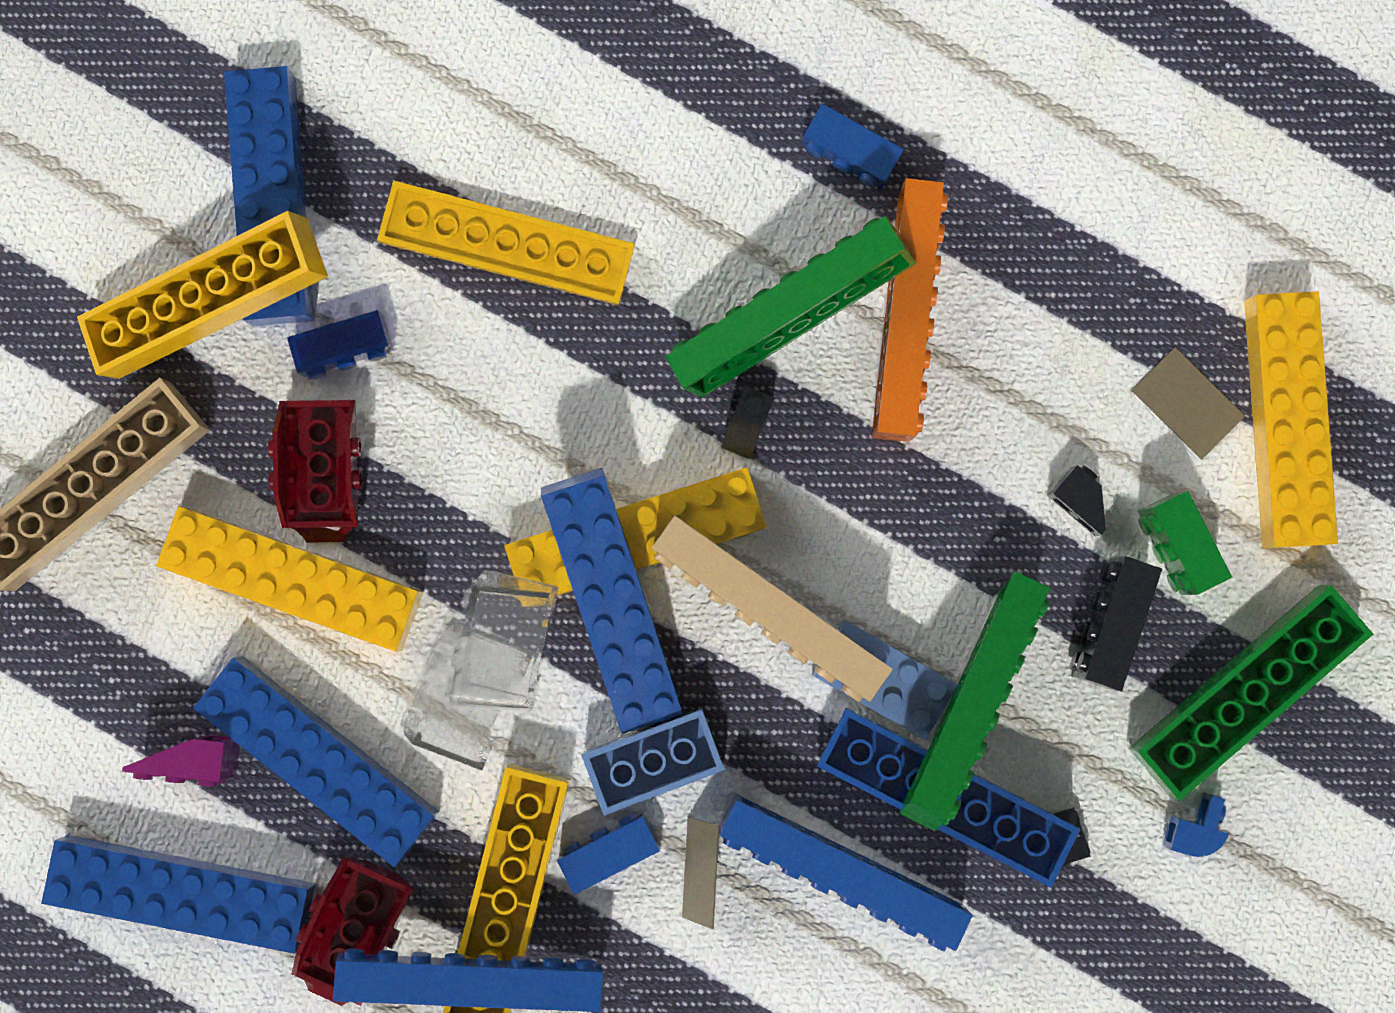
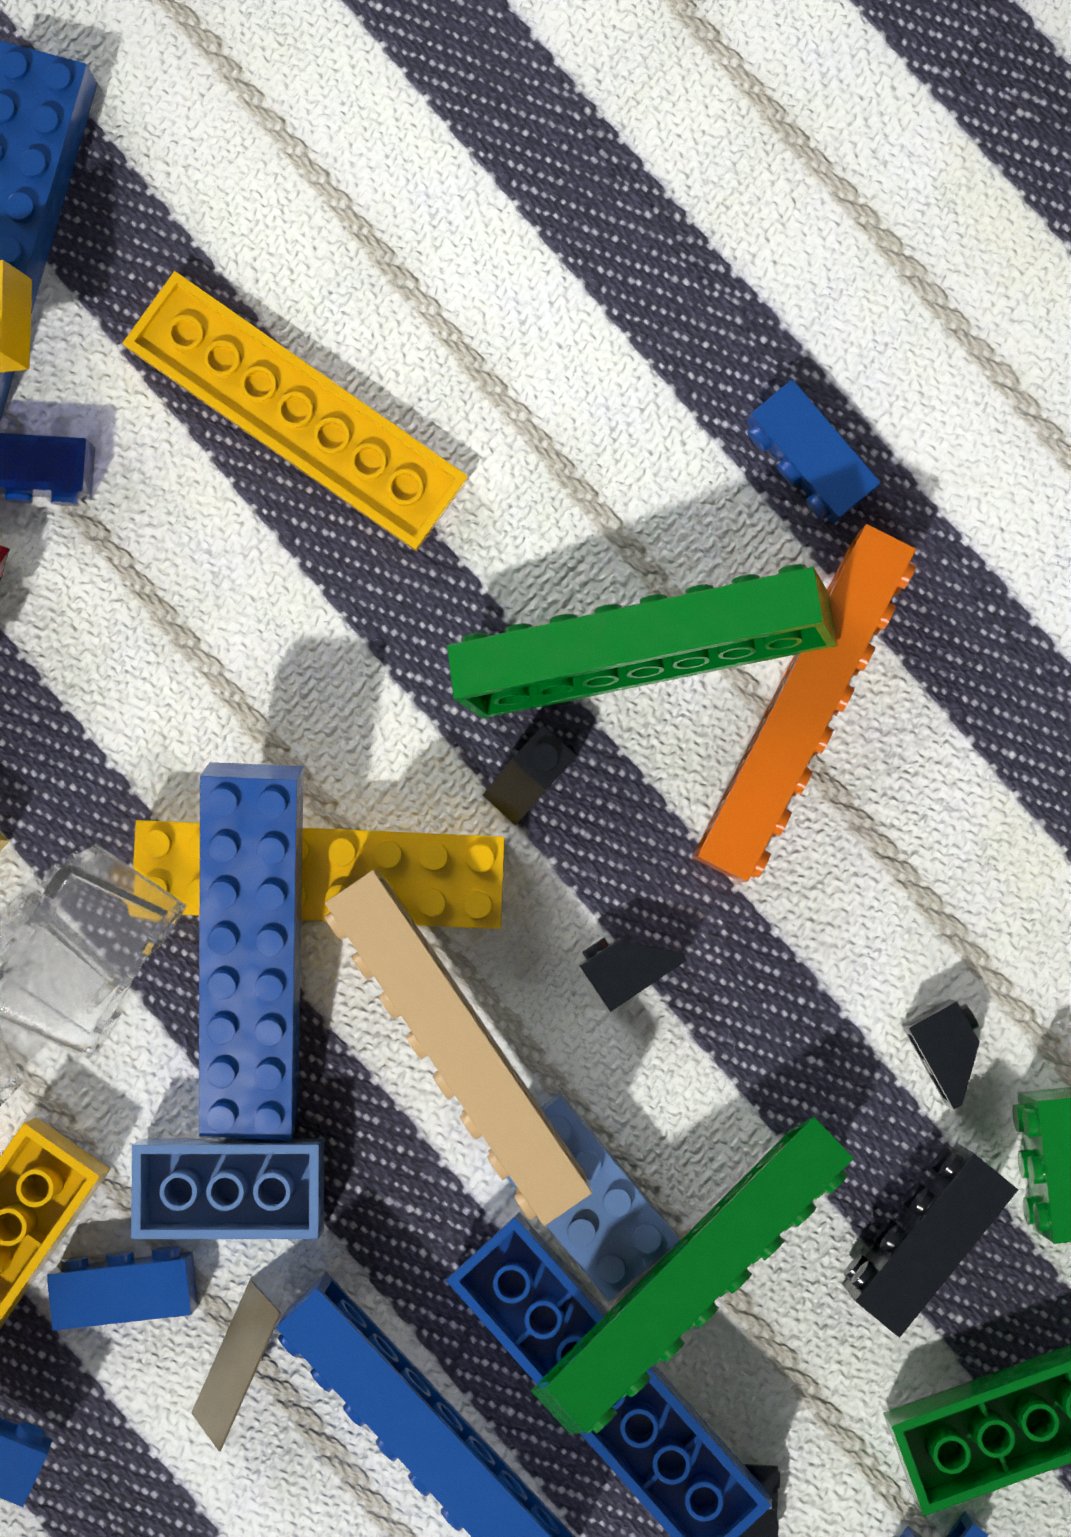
camera: 25 degrees right, 0 degrees up
(856, 524) = (626, 968): none -> black slope

